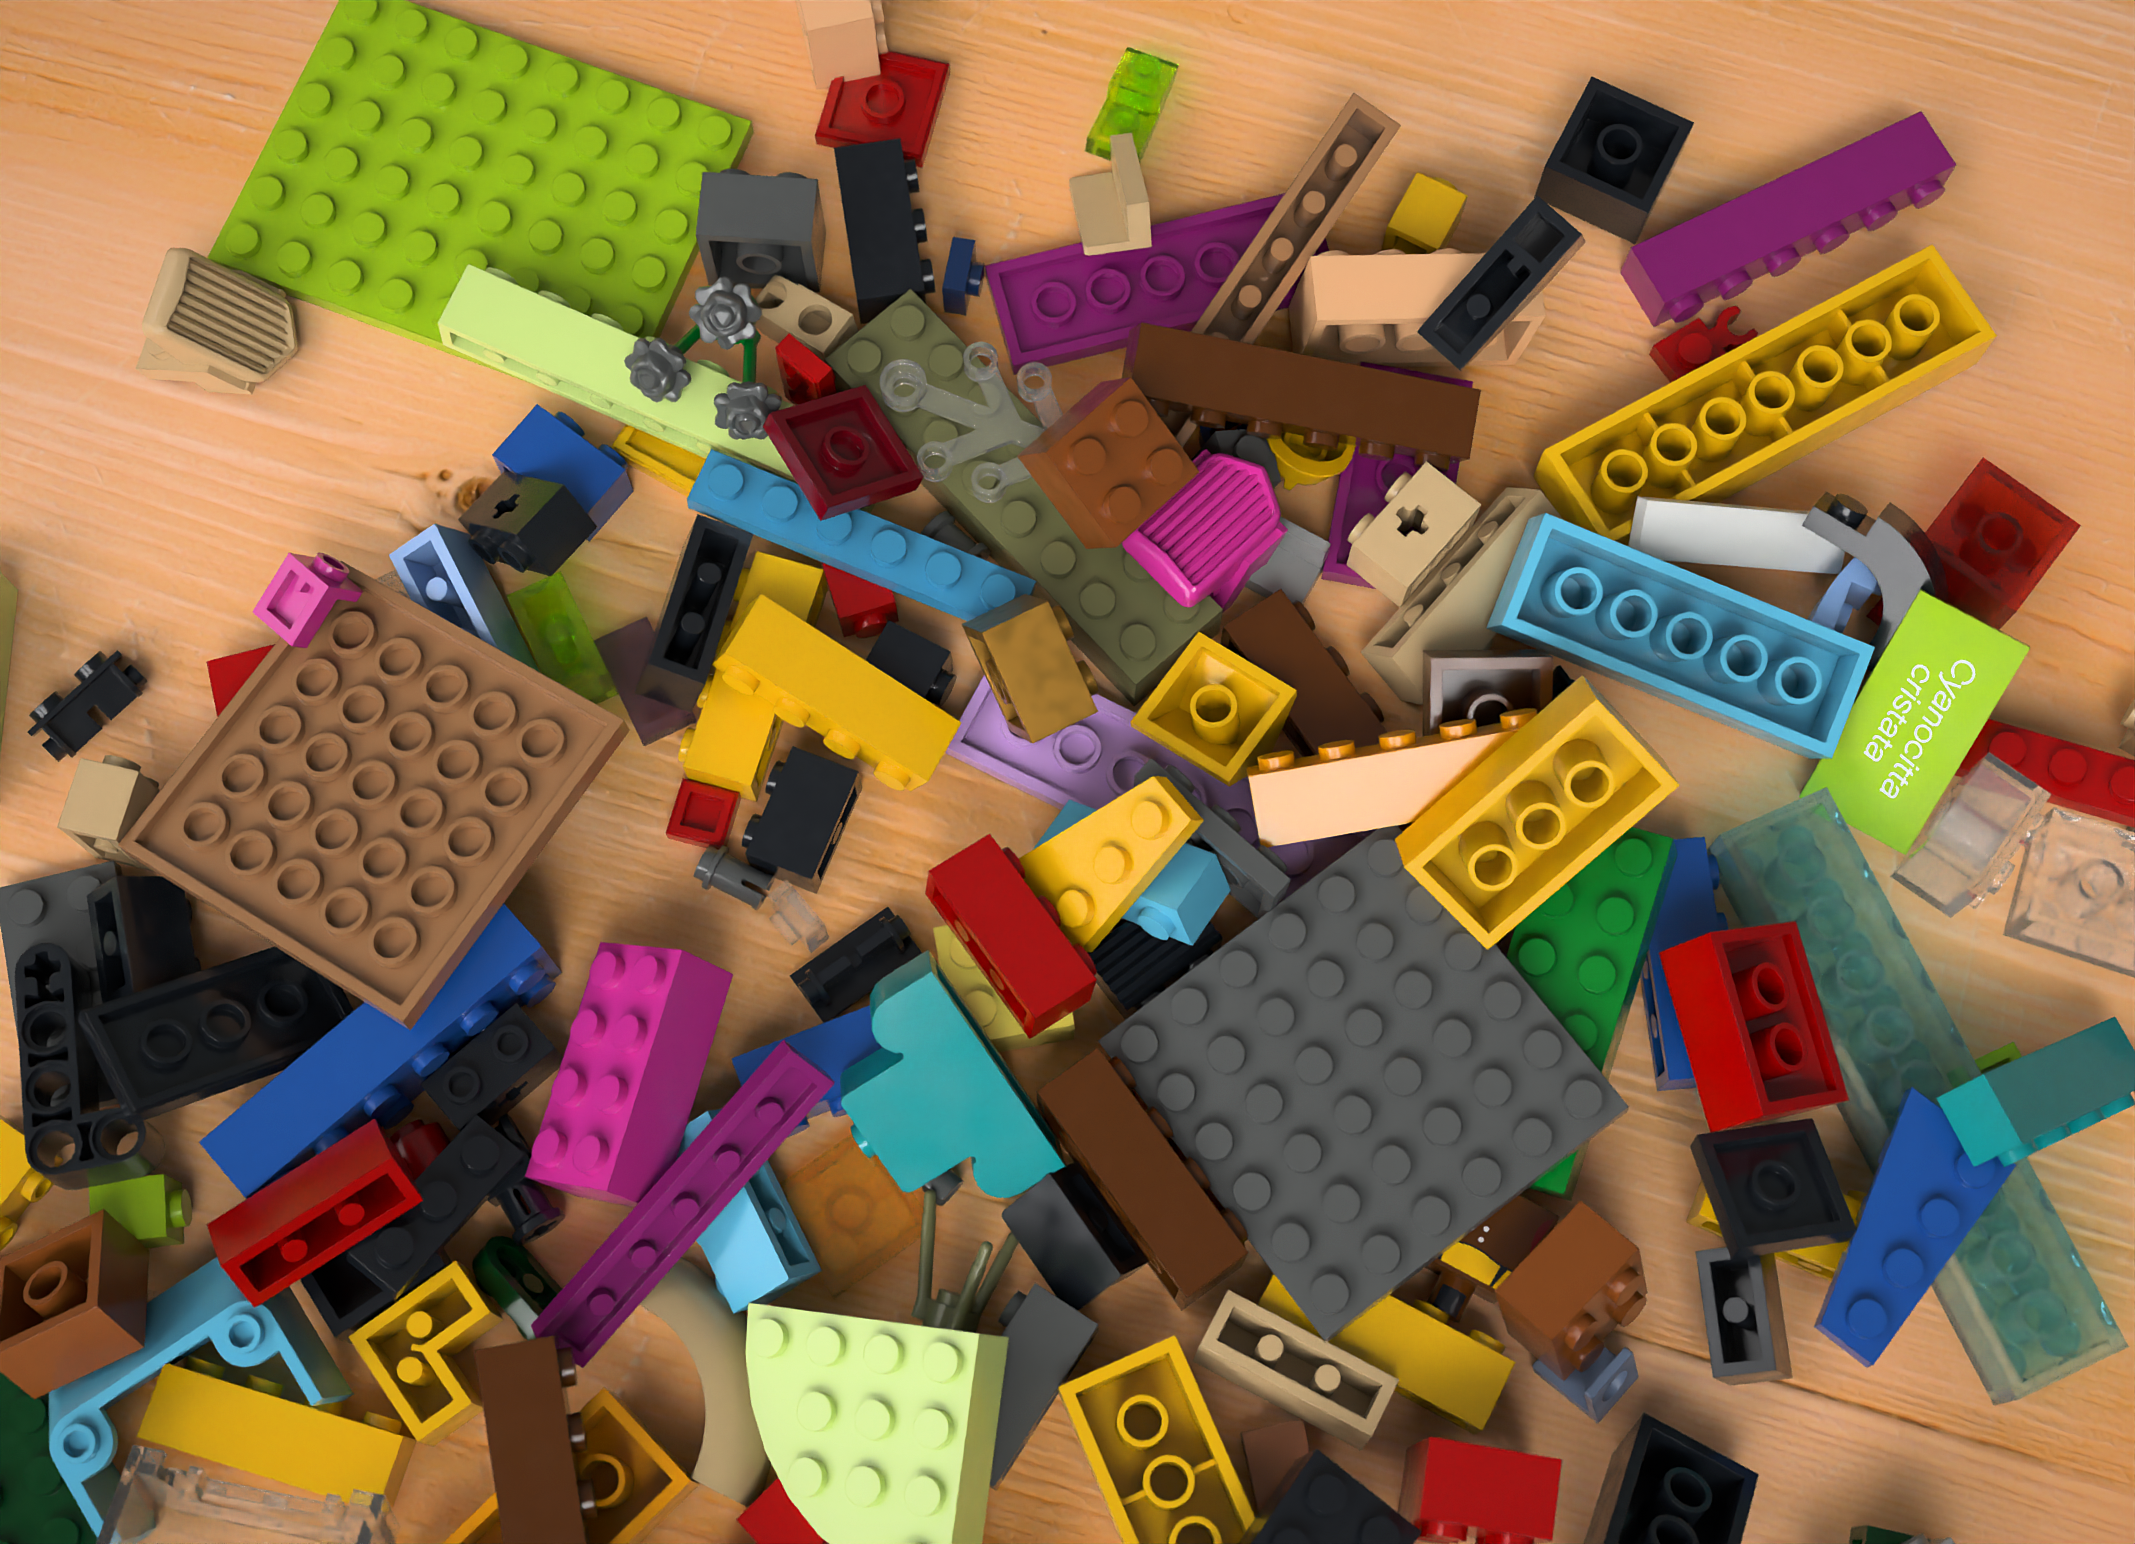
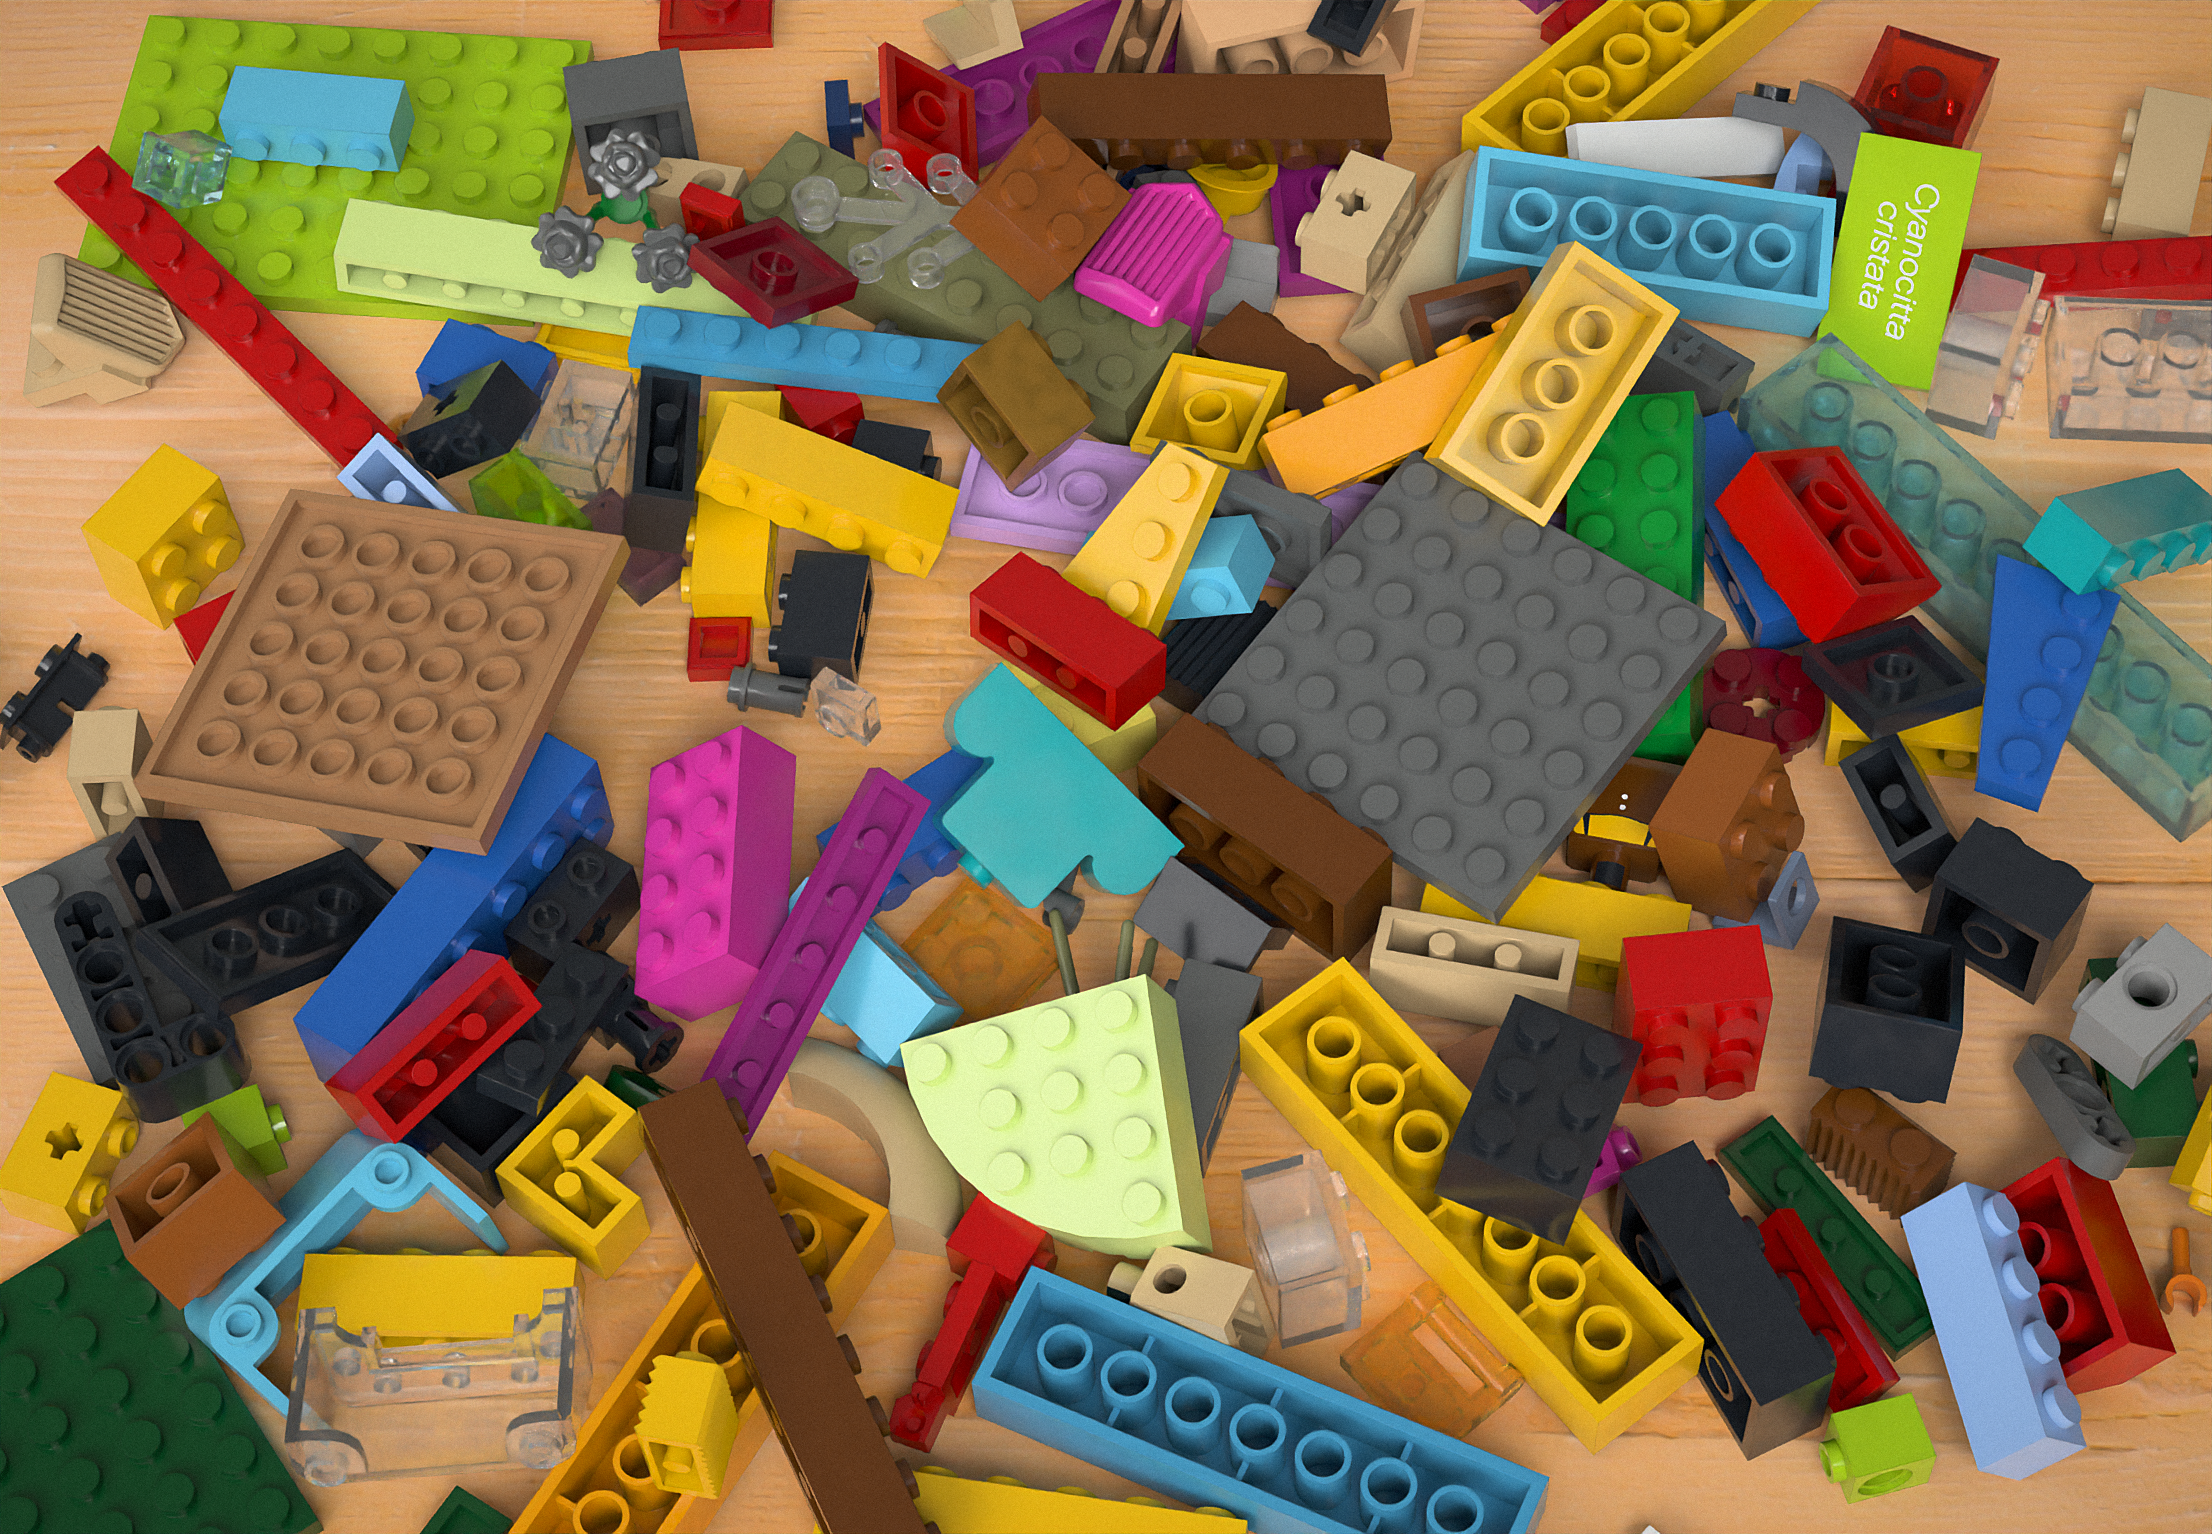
camera: 10 degrees left, 15 degrees down
(214, 569) = (164, 536): none -> yellow brick
(304, 595) = (264, 516): dark pink bracket -> none
(328, 177) = (182, 168): none -> clear light blue brick
(337, 335) = (221, 308): none -> red plate
(468, 152) = (317, 118): none -> medium azure brick
(632, 579) = (581, 428): none -> clear brick
(855, 964) = (916, 734): black hinge -> none
(882, 225) = (746, 91): black brick -> none
(1035, 309) = (925, 114): none -> red slope
(1659, 1180) = (1767, 676): none -> dark red plate
(1704, 780) = (1698, 364): none -> dark grey hinge
(1809, 1451) = (2008, 907): none -> black brick

